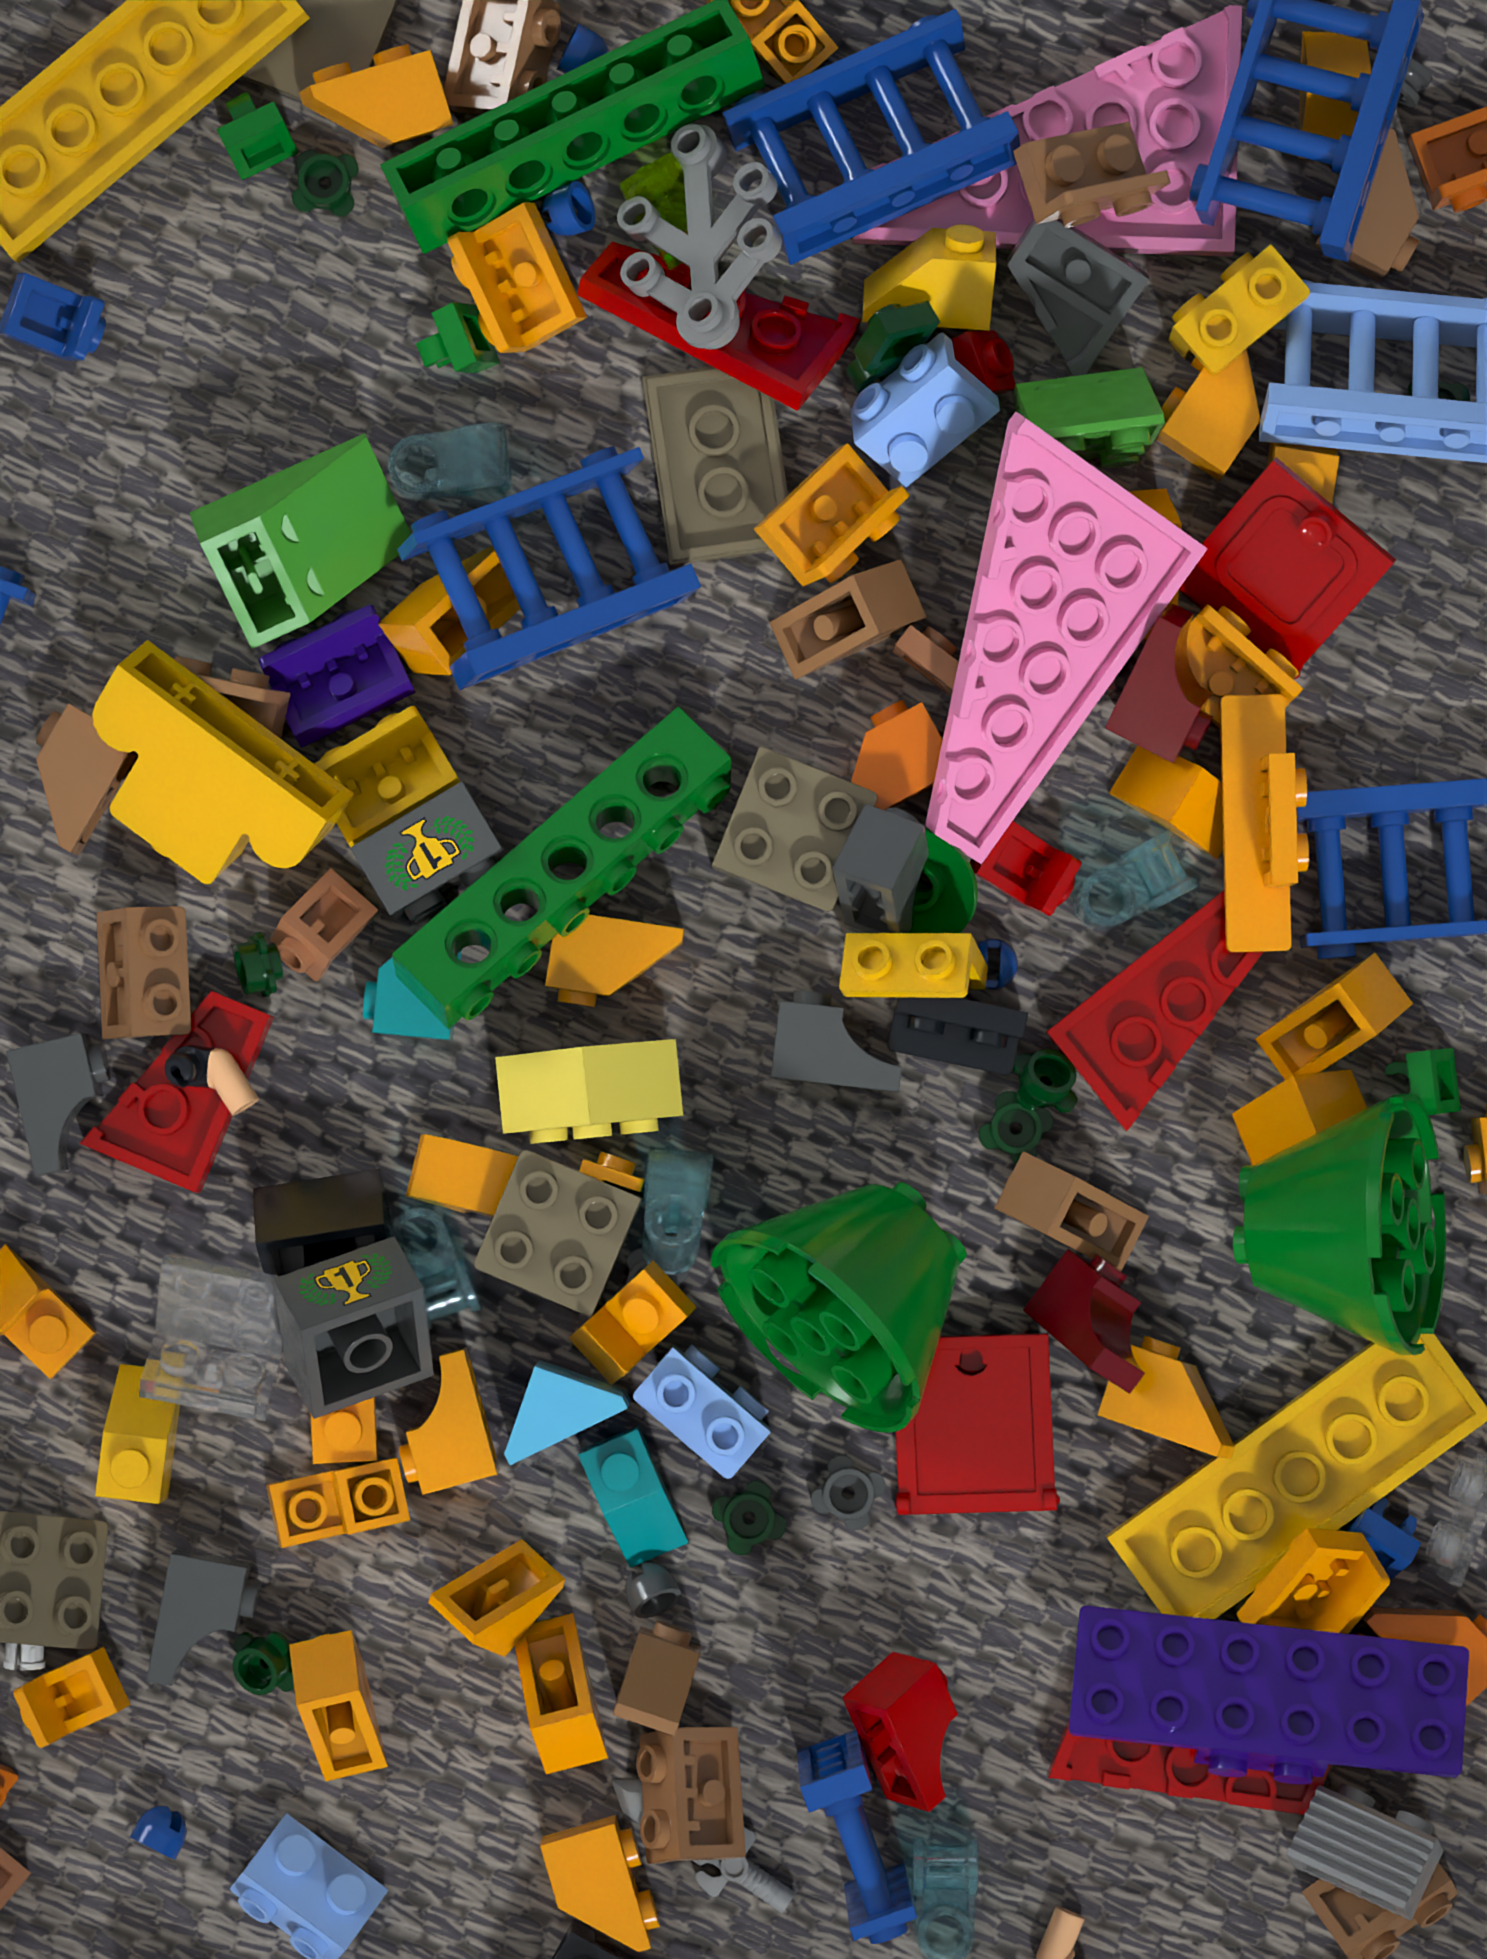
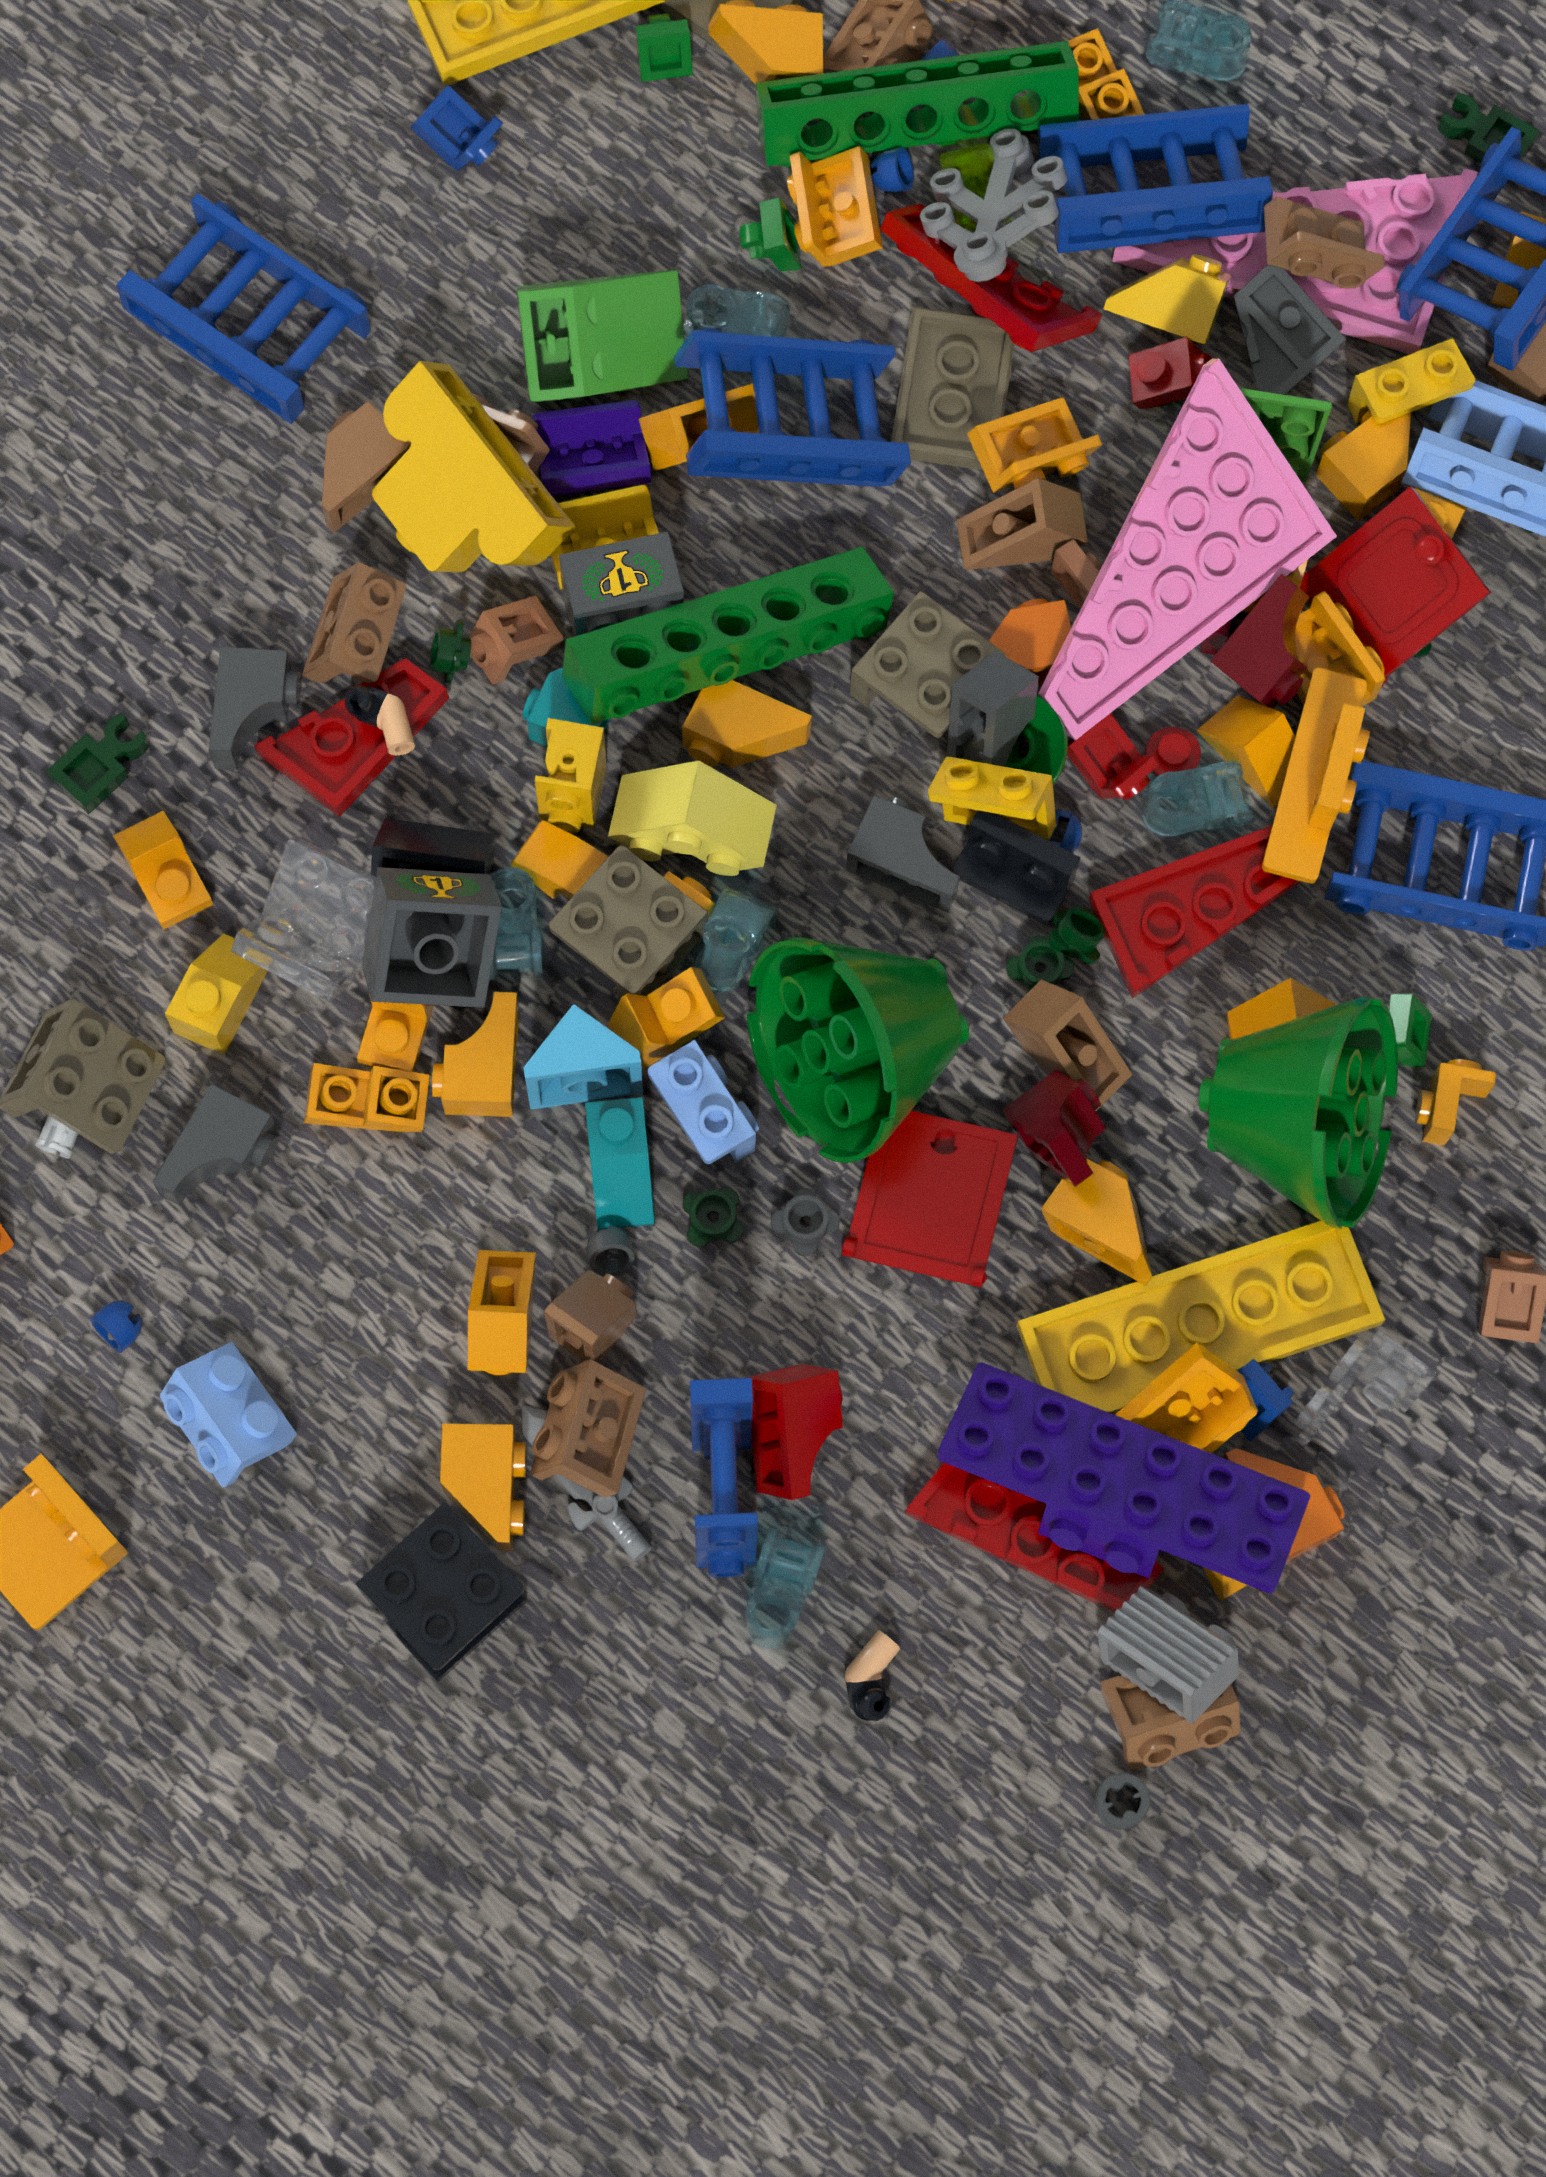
camera: 15 degrees right, 15 degrees down
(70, 1697) = (83, 1185): light orange bracket -> none
(250, 1663) = (245, 1204): dark green plate -> none
(317, 166) = (711, 86): dark green plate -> none
(337, 1705) = (307, 1262): light orange slope -> none
(444, 1084) = (576, 775): none -> yellow hinge
(499, 1597) = (476, 1212): light orange slope -> none
(888, 340) = (1120, 324): dark green plate -> none
(920, 411) = (1131, 387): light blue bracket -> none
(1090, 833) = (1174, 750): none -> red plate
(1335, 1019) = (1340, 952): light orange slope -> none

